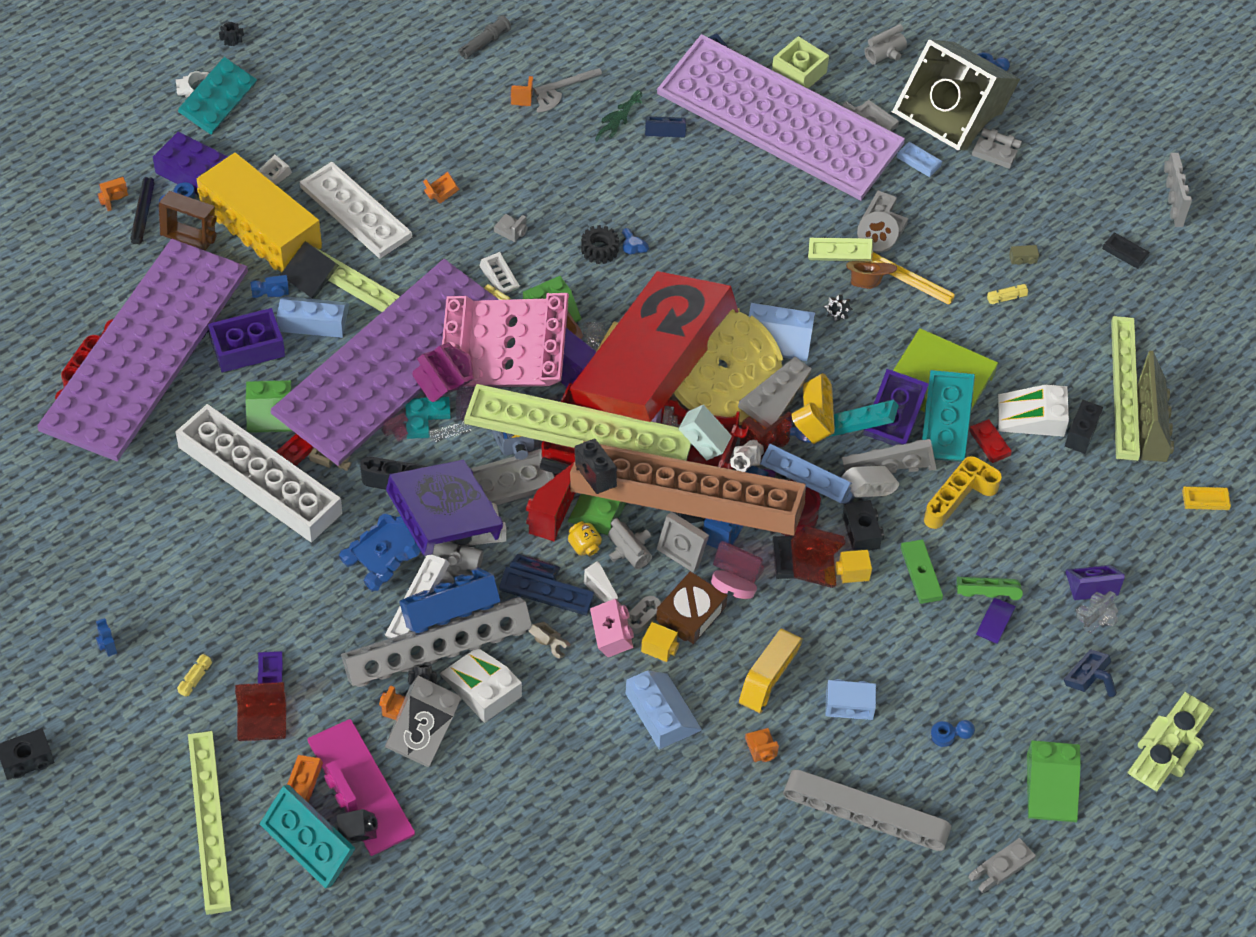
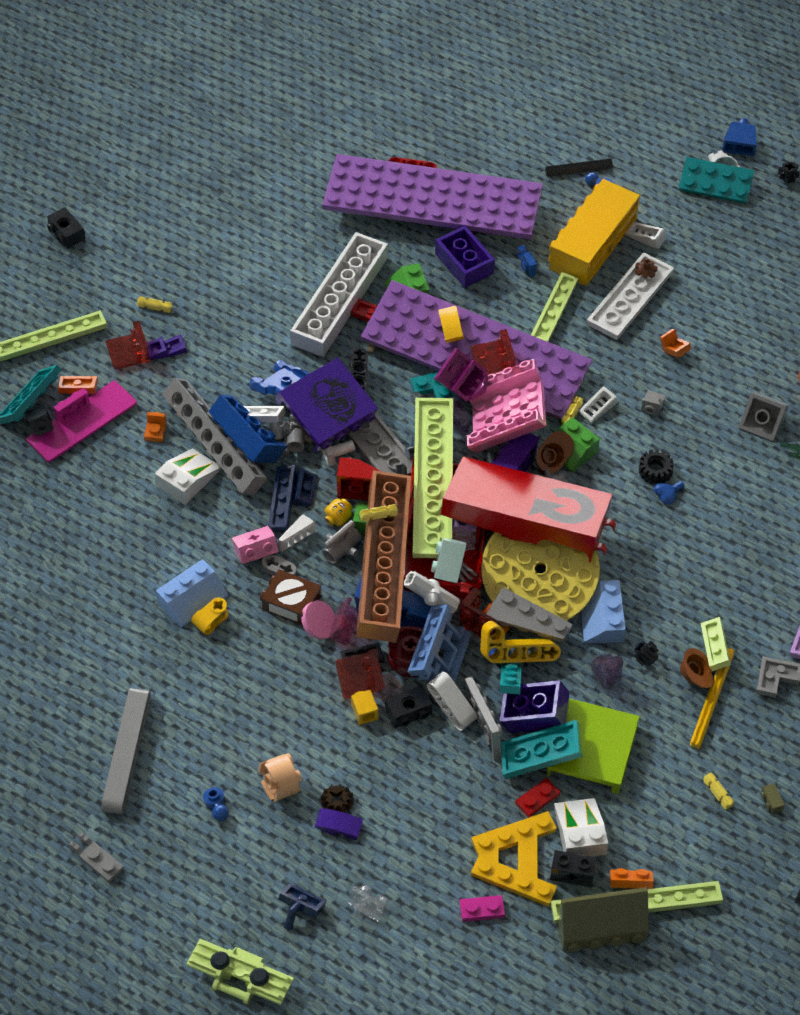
camera: 80 degrees right, 0 degrees up
(105, 638) = (170, 244): blue plate -> none
(111, 191) = (588, 143): orange bracket -> none
(163, 59) = (740, 138): none -> blue torso
(184, 233) = (568, 190): reddish brown window -> none
(185, 160) = (637, 176): dark purple brick -> none
(309, 270) = (551, 279): black tile -> none
(312, 316) = (510, 292): light blue slope -> none
(327, 183) = (646, 268): none -> reddish brown plant
(366, 363) = (451, 324): none -> yellow slope
(396, 427) = (413, 369): clear pink tile -> none
(419, 332) = (496, 354): none -> clear red bracket
(422, 721) = (140, 441): light grey slope -> none
(423, 671) = (180, 435): black gear -> none
(548, 636) = (240, 507): dark tan plate -> none
(560, 139) = (763, 415): none -> light grey slope
(595, 466) = (374, 479): black brick -> none
(640, 473) = (378, 512): none -> light yellow axle
(660, 642) = (252, 581): yellow brick -> none
(682, 542) = (349, 576): light grey plate -> none
(699, 692) = (210, 616): none -> yellow piece
(762, 745) = (173, 669): orange bracket -> none
(769, 669) = (245, 658): yellow beam -> none
(850, 699) = (228, 722): light blue brick -> none
(854, 342) = (607, 669): none -> clear purple arch
(880, 228) = (749, 671): light grey tile -> none
(918, 561) = (384, 754): bright green tile -> none
(937, 658) = (280, 777): none -> light nougat brick
(963, 625) = (346, 798): none -> dark brown gear
(969, 475) = (443, 762): yellow beam -> none
(989, 587) = (370, 812): bright green plate -> none
(1034, 463) = (525, 879): none -> yellow plate
(1053, 781) = (182, 885): bright green slope -> none
(1089, 580) = (402, 896): dark purple slope -> none
(1099, 384) = (631, 879): none -> orange plate
(1113, 516) = (482, 908): none -> dark pink plate
(1206, 498) = (527, 987): yellow tile -> none

